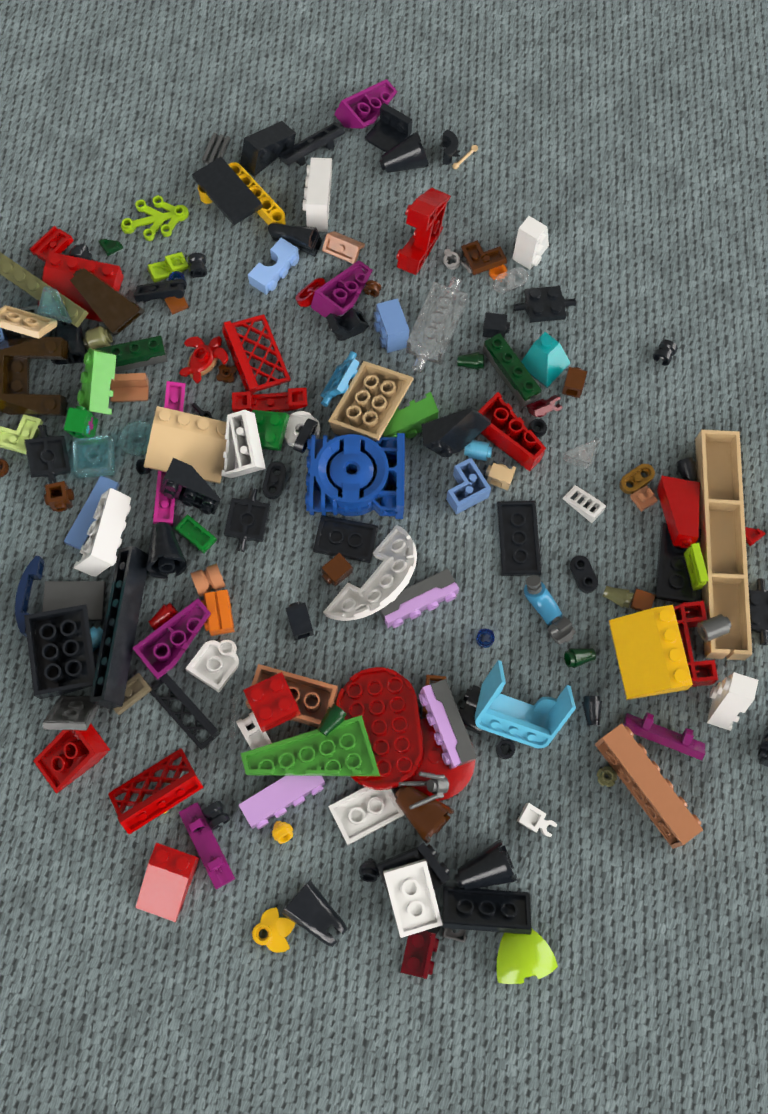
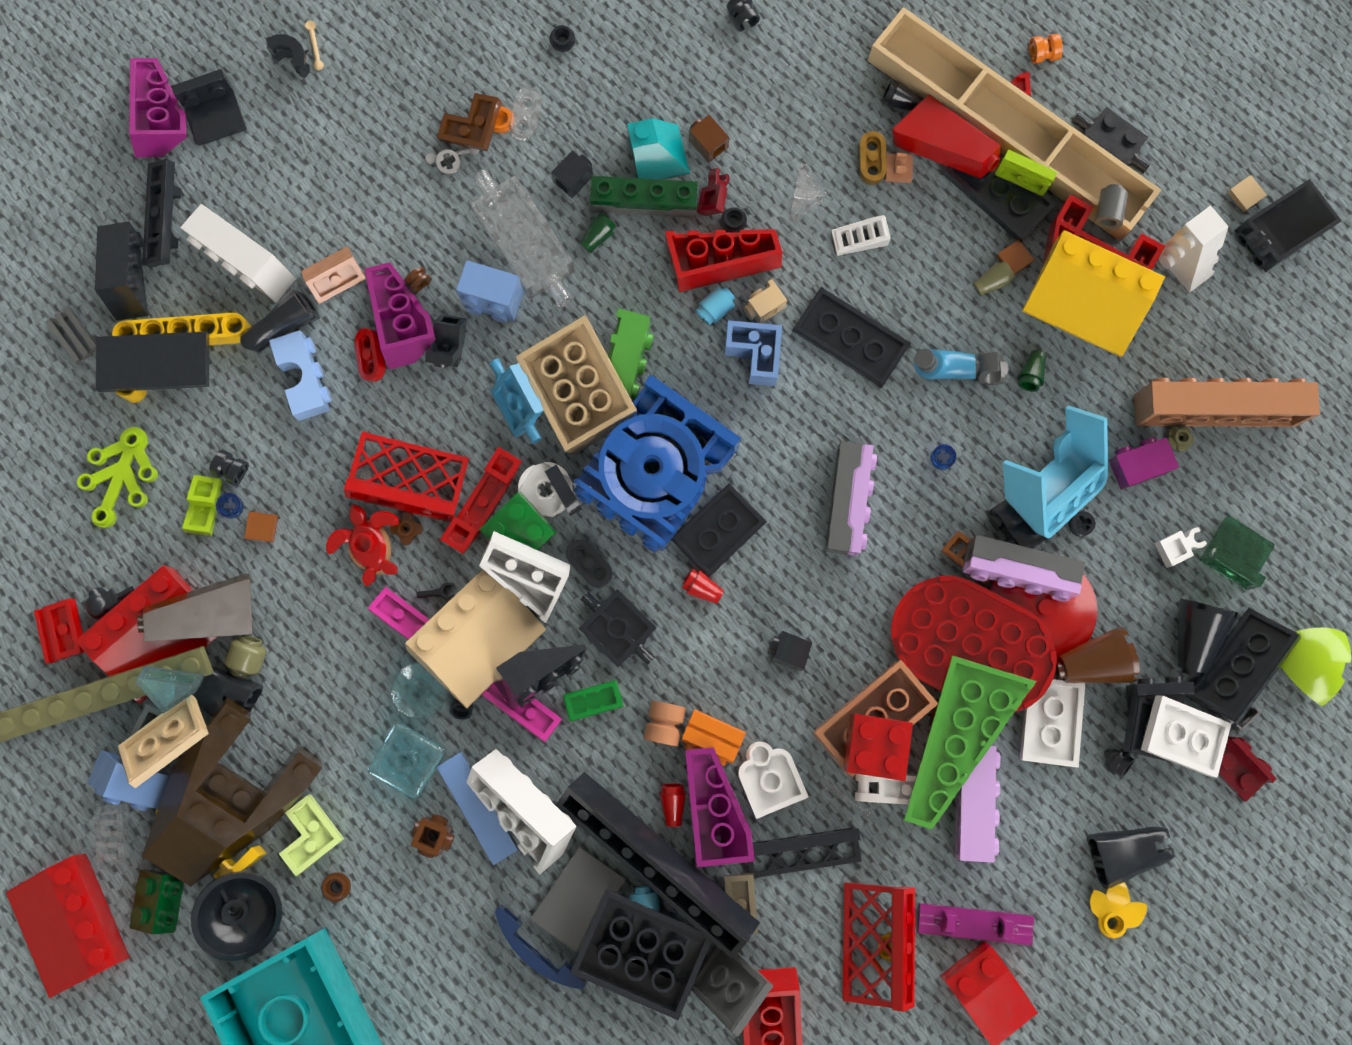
camera: 55 degrees left, 10 degrees up
(47, 456) = (366, 817): black plate -> none
(80, 422) = (354, 749): green brick -> none
(97, 381) = (314, 696): wedge -> none
(110, 246) = (117, 557): dark green tile -> none
(130, 387) = (340, 660): nougat panel -> none
(138, 353) = (296, 634): dark green piece -> none
(160, 290) = (232, 535): black plate -> none
(164, 552) = (593, 751): black cone -> none
(215, 814) = (950, 892): black wheel -> none
(282, 832) = (1015, 829): yellow plate -> none
(304, 549) = (702, 587): none -> red cone
(333, 717) = (939, 692): dark green cone -> none
(336, 570) = (753, 567): reddish brown brick -> none
(384, 585) = (812, 521): white plate -> none
(405, 155) = (263, 113): black cone -> none
(427, 217) = (391, 165): red wedge -> none
(436, 785) = (1083, 628): dark grey plant -> none
(453, 432) = (684, 320): black slope -> none
(530, 243) = (502, 55): white wedge -> none
(544, 304) = (583, 98): black plate -> none
(560, 861) = (1238, 553): none -> clear green bracket
(570, 267) = (562, 31): none -> black plate
(572, 761) = (1143, 463): none -> magenta brick
(583, 573) = (942, 298): black plate -> none
(592, 709) = (1099, 399): black cone -> none
(680, 742) = (1162, 357): magenta hinge -> none

